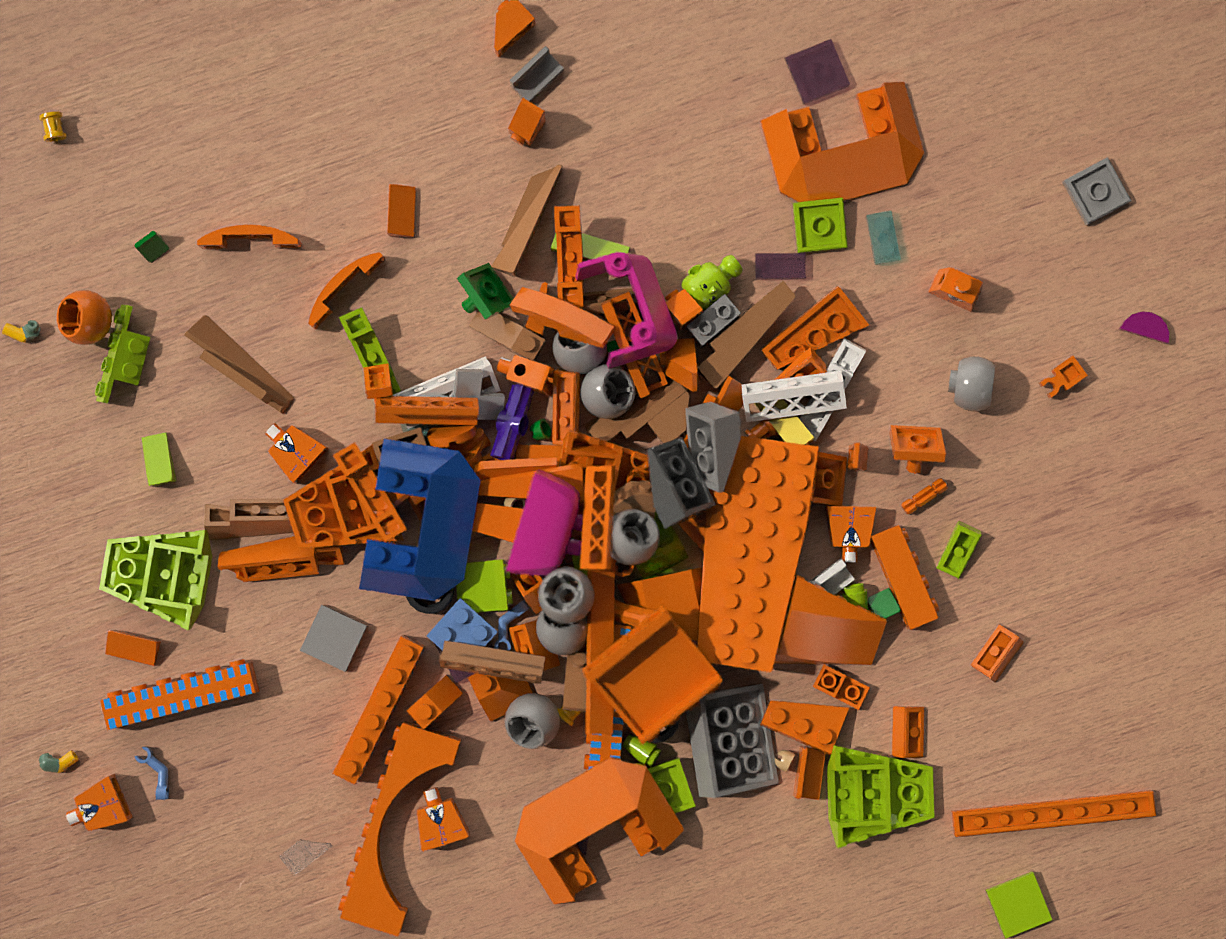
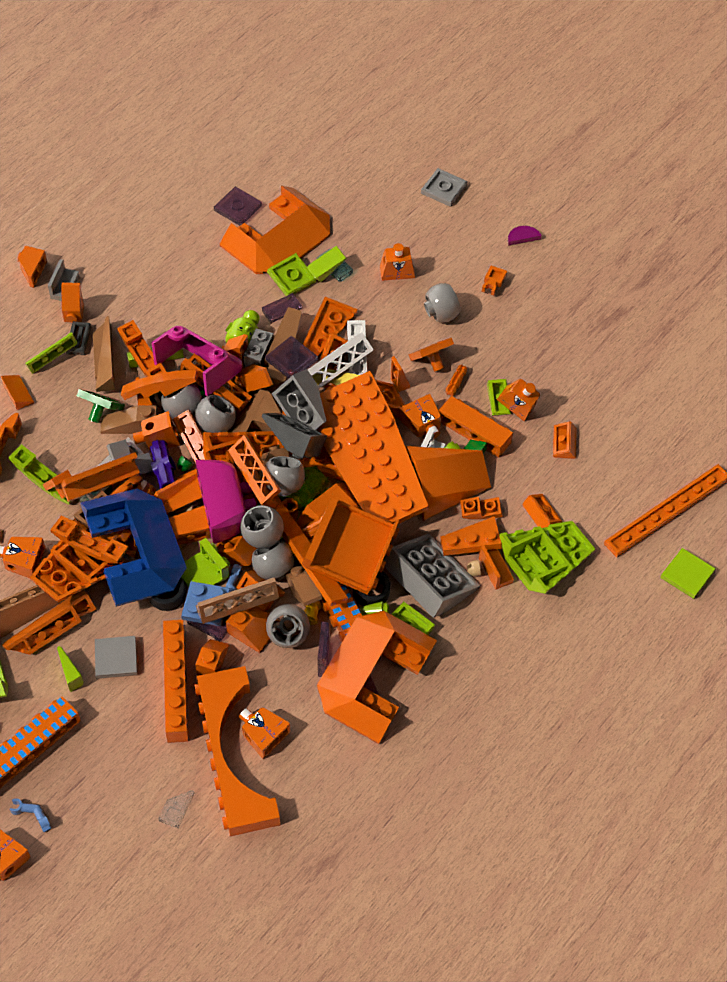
camera: 30 degrees left, 30 degrees down
(274, 630) = (71, 673): none -> lime slope
(466, 179) = (51, 353): none -> lime slope
(500, 188) = (76, 349): none -> dark grey tile
(554, 771) = (323, 648): none -> tile
(741, 362) = (291, 357): none -> tile
(870, 237) = (326, 264): none -> lime slope
(978, 580) = (519, 398): none -> orange torso

